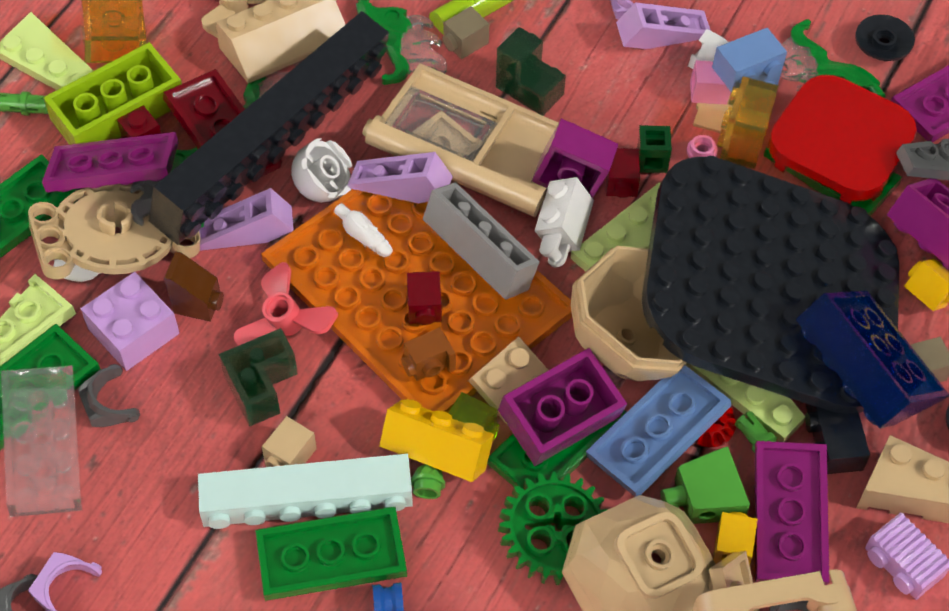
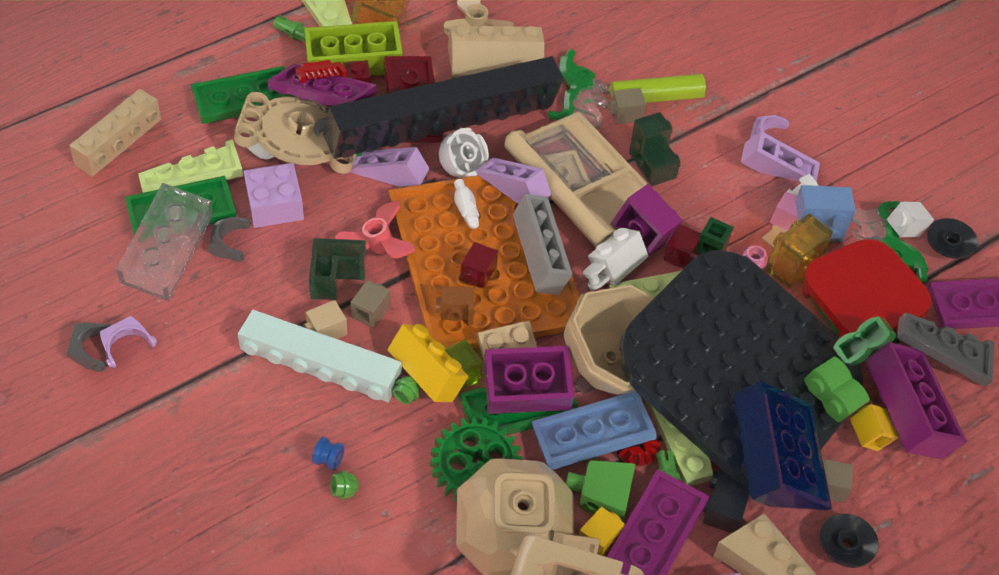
camera: 25 degrees right, 5 degrees down
(95, 142) = (319, 69): none -> red piece
(192, 289) = (325, 191): reddish brown slope -> none
(325, 399) = (370, 303): none -> dark tan brick
(330, 553) = (310, 404): green plate -> none
(833, 35) = (910, 219): none -> white brick
(877, 203) = (859, 345): none -> green brick
(881, 261) = (836, 389): none -> bright green brick

